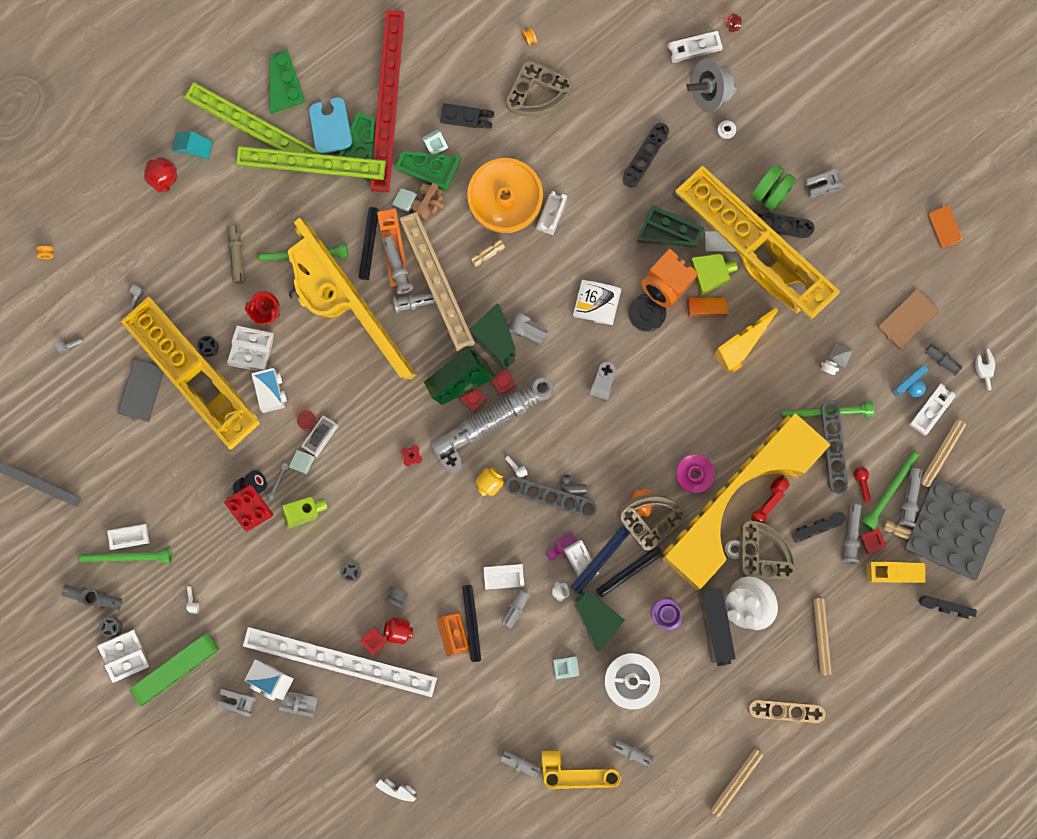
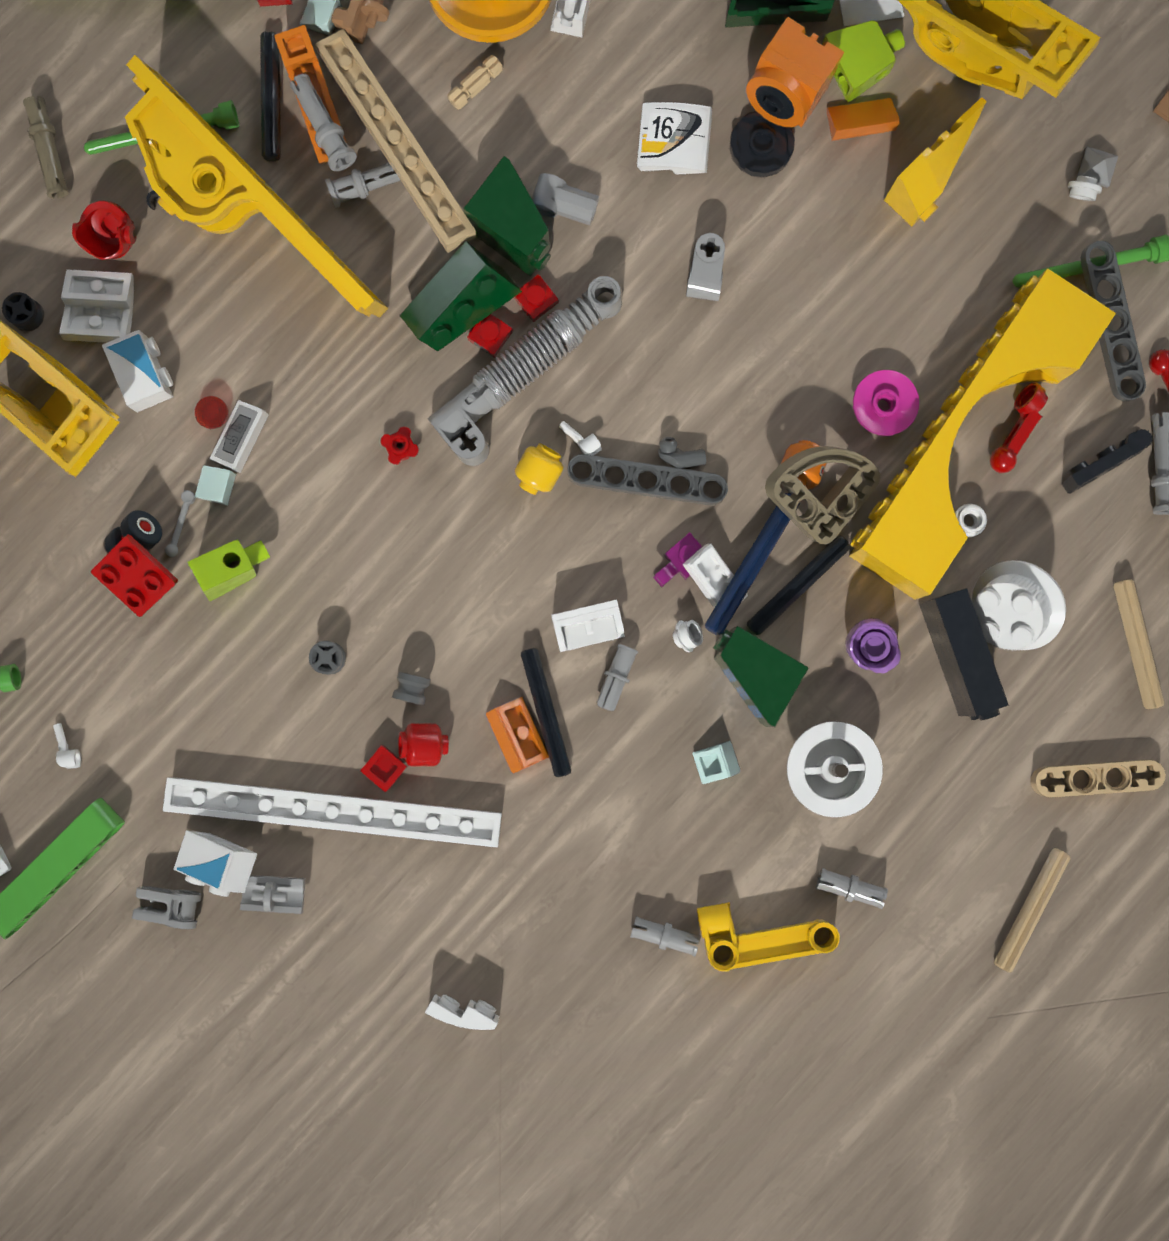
camera: 10 degrees left, 5 degrees up
(757, 565) = (1014, 540): dark tan beam -> none

